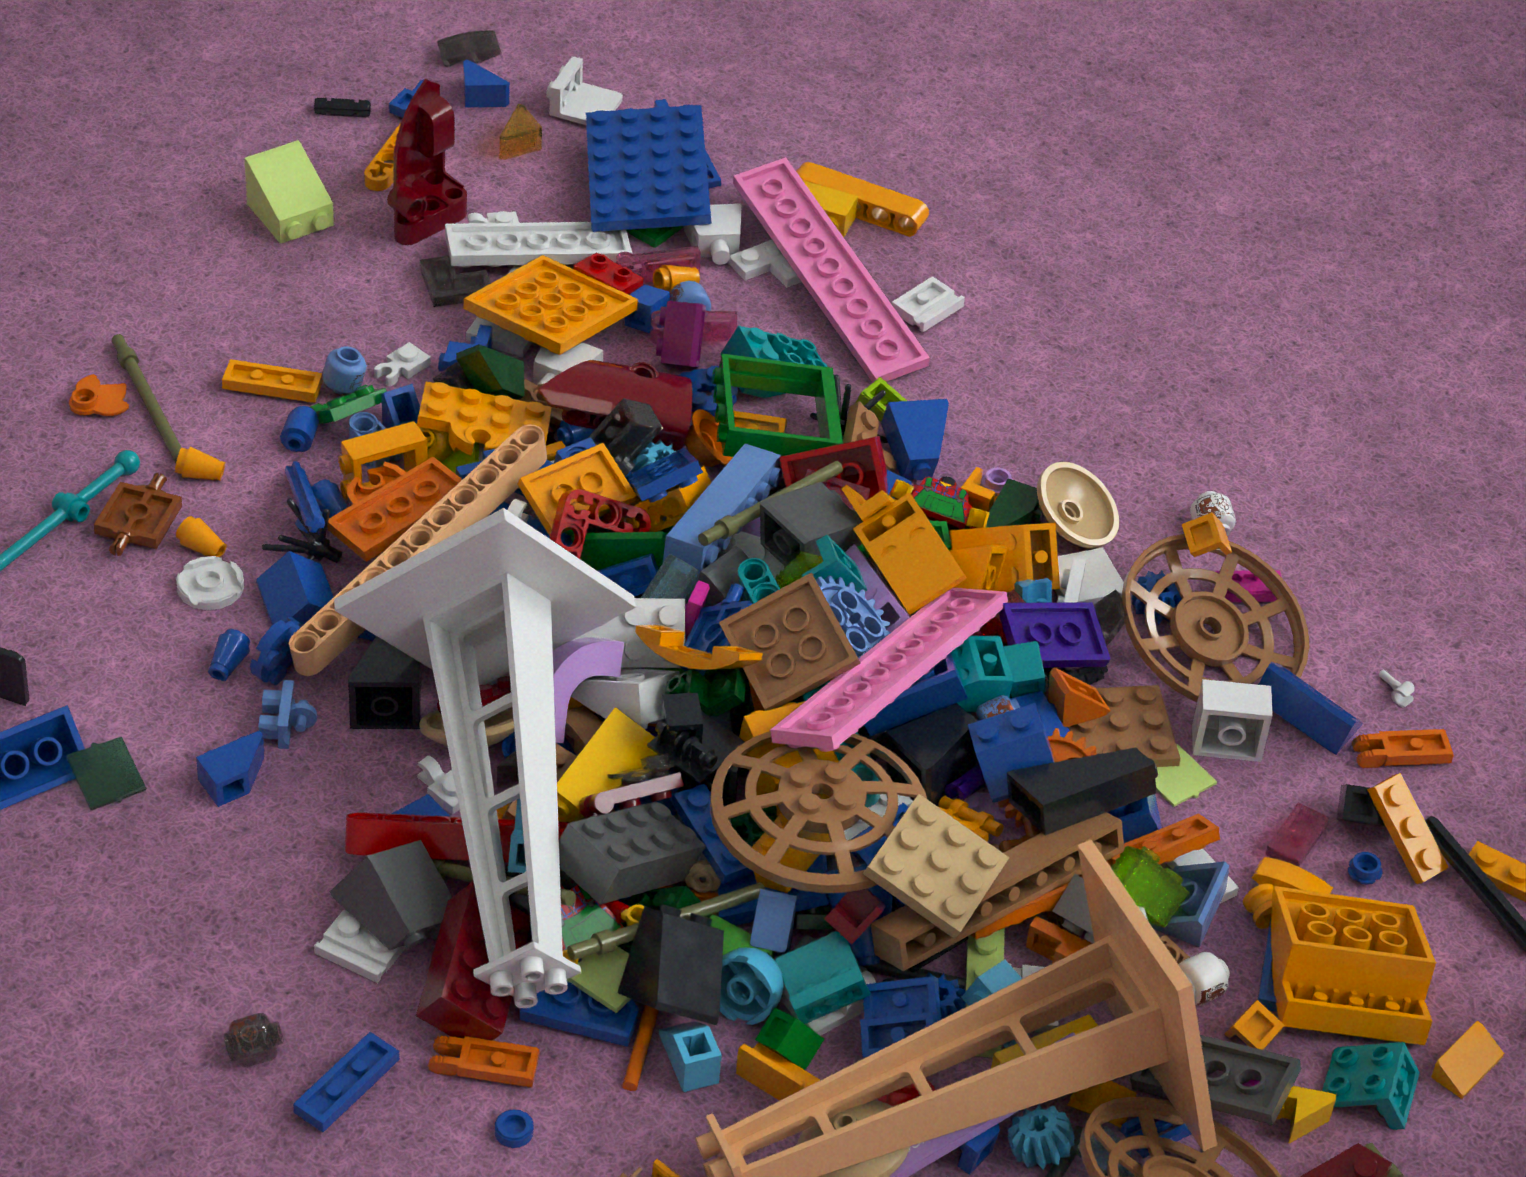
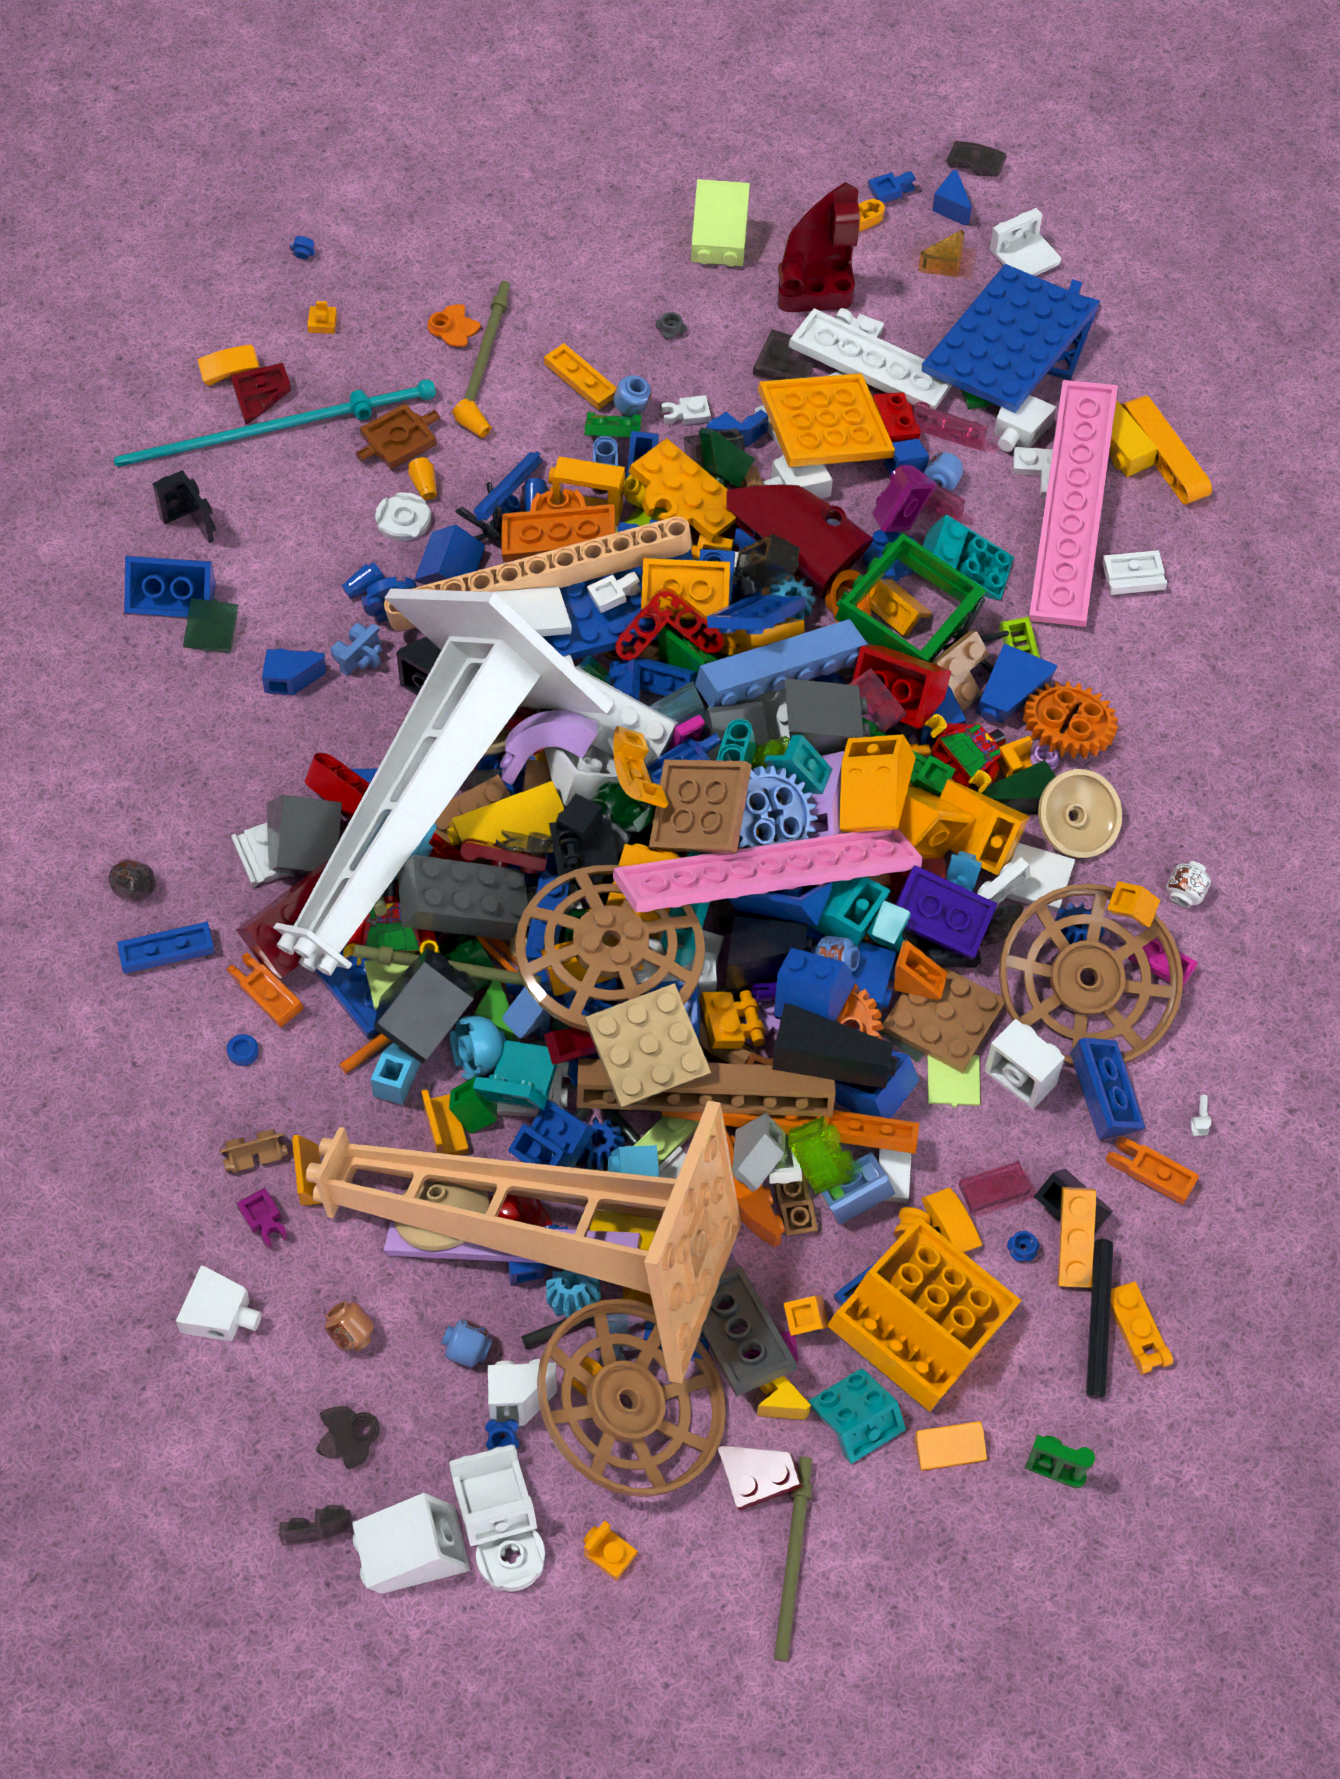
camera: 40 degrees right, 15 degrees up
(299, 429) = (564, 426): blue brick -> none
(317, 300) = (671, 325): none -> dark grey plate
(342, 107) = (835, 165): black axle -> none
(669, 276) = (955, 444): light orange cone -> none
(729, 524) = (751, 684): olive bar -> none
(868, 508) = (877, 722): light orange panel -> none
(1004, 446) = (1088, 730): none -> orange gear
(1207, 976) = (805, 1251): white head -> none

